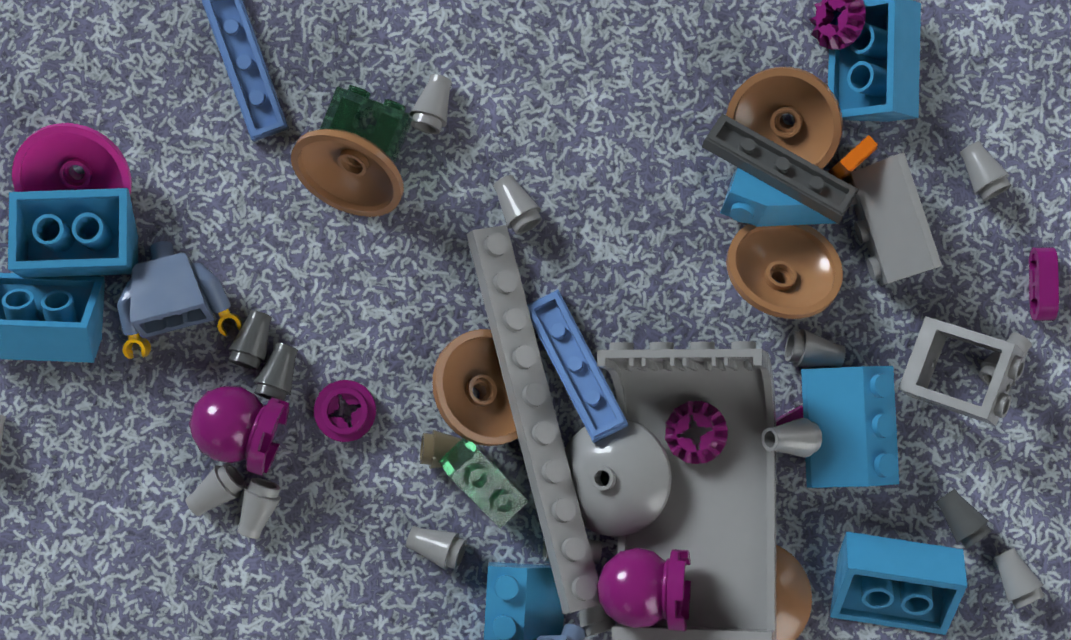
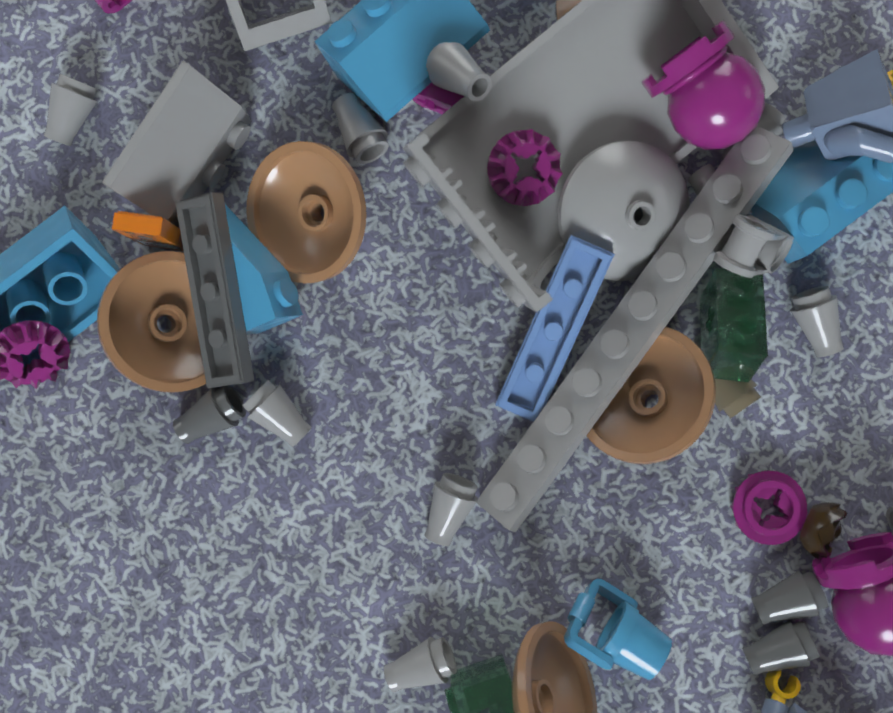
camera: 130 degrees left, 0 degrees up
(304, 432) = (822, 528): none -> dark brown plate
(339, 250) = (626, 638): none -> dark azure piece
(522, 533) = (754, 247): none -> light grey piece
(670, 144) = (277, 413): none -> light grey cone
(704, 101) = (212, 413): none -> dark grey cone

